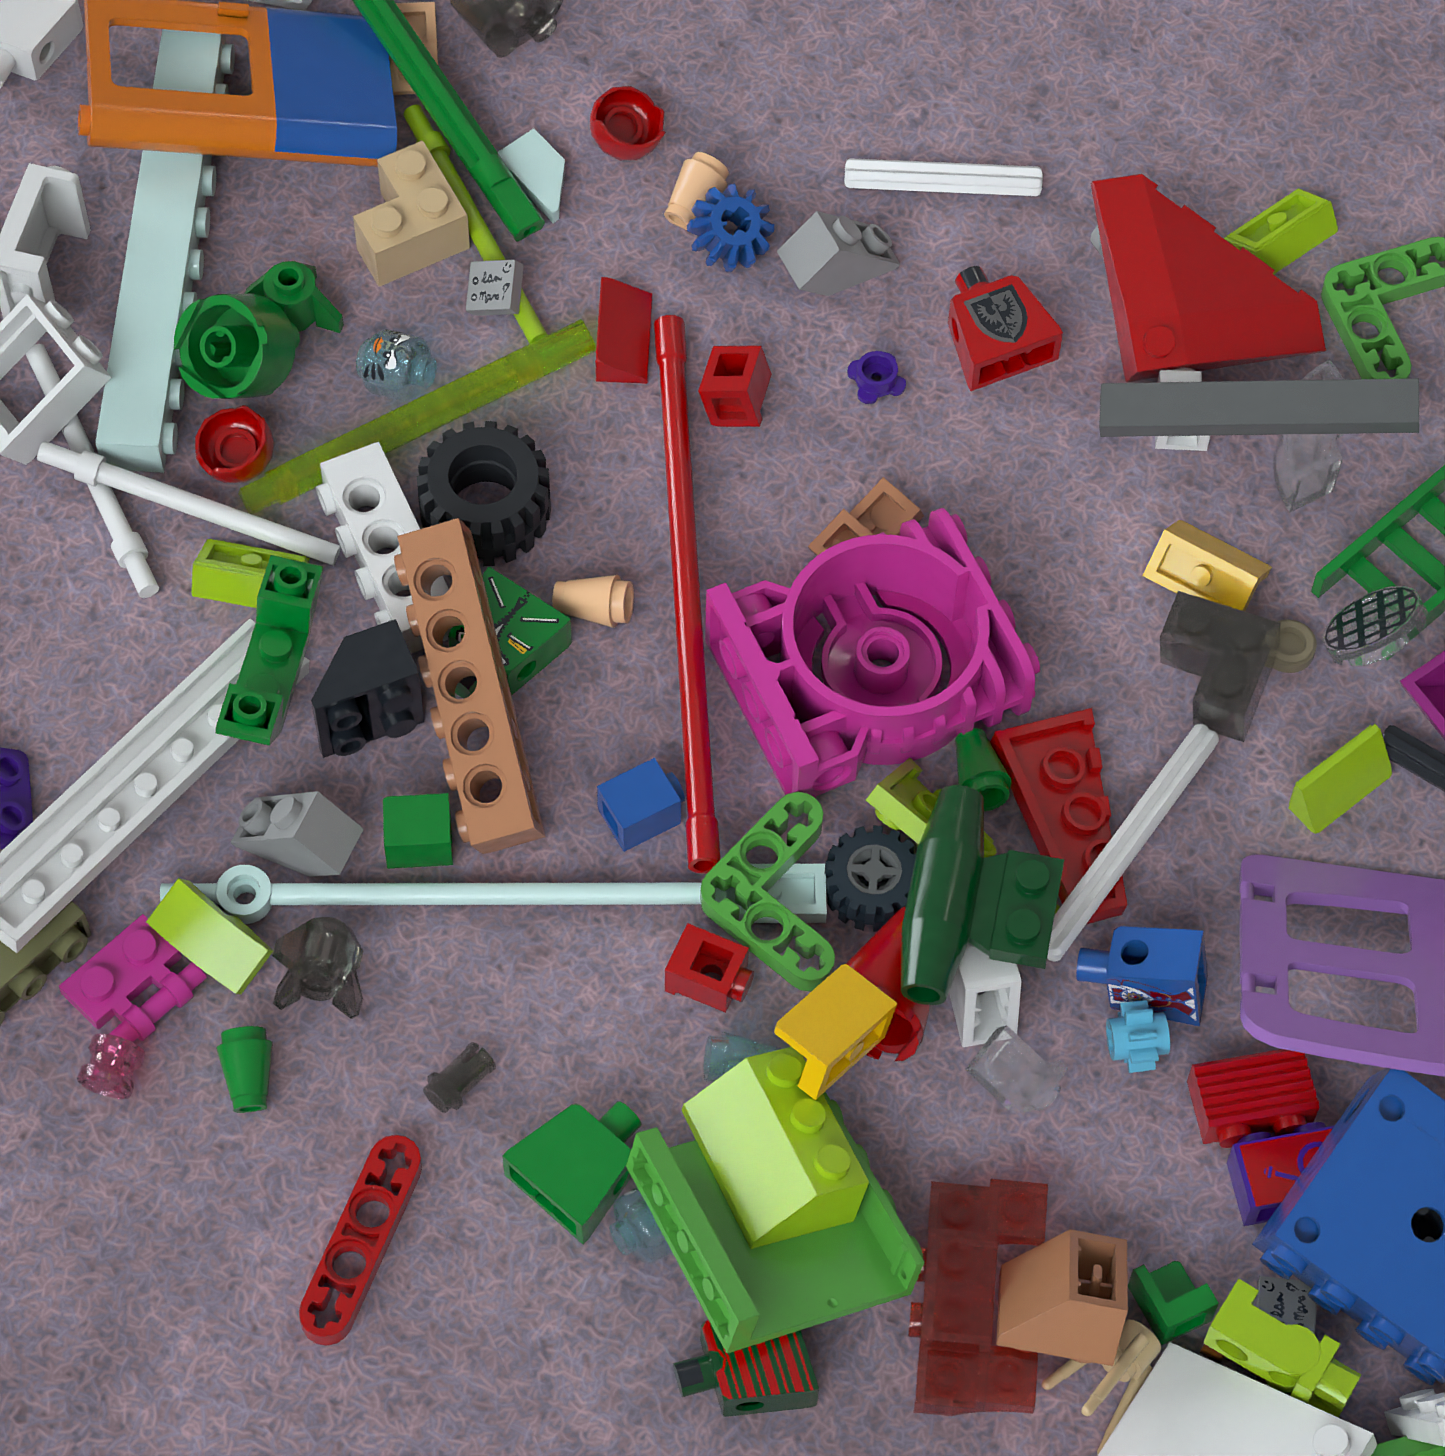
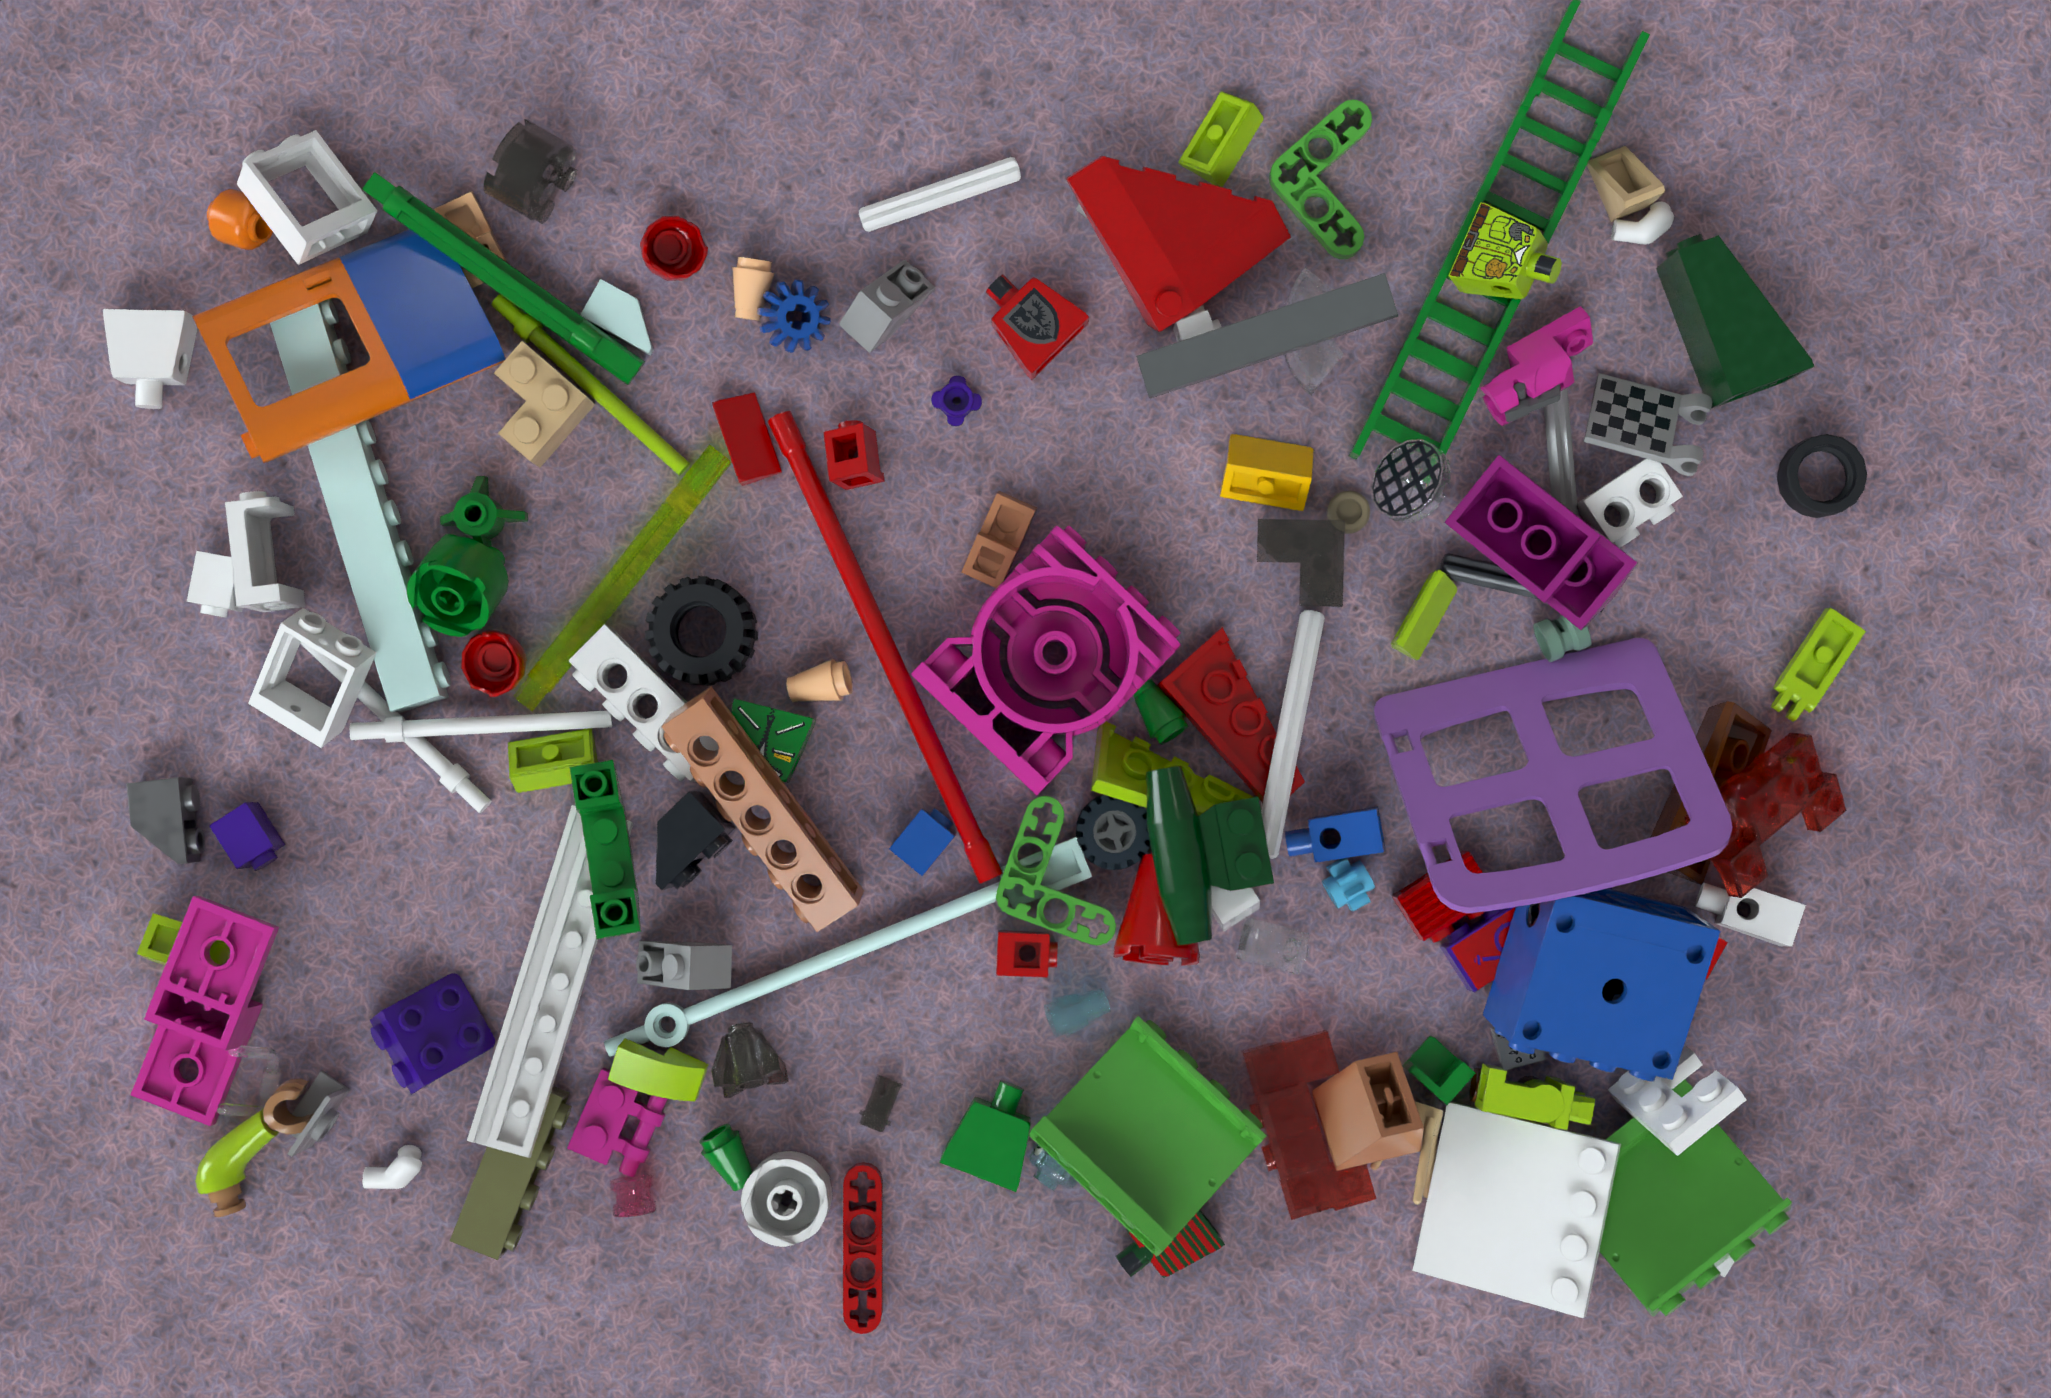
camera: 20 degrees left, 25 degrees up
(315, 1110) = (763, 1207): none -> white brick
(396, 365) = (586, 542): clear light blue head -> none
(417, 831) = (770, 927): green panel -> none
(494, 287) = (632, 441): light grey tile -> none
(776, 1150) = (1128, 1084): lime slope -> none
(835, 1027) = (1140, 994): yellow panel -> none

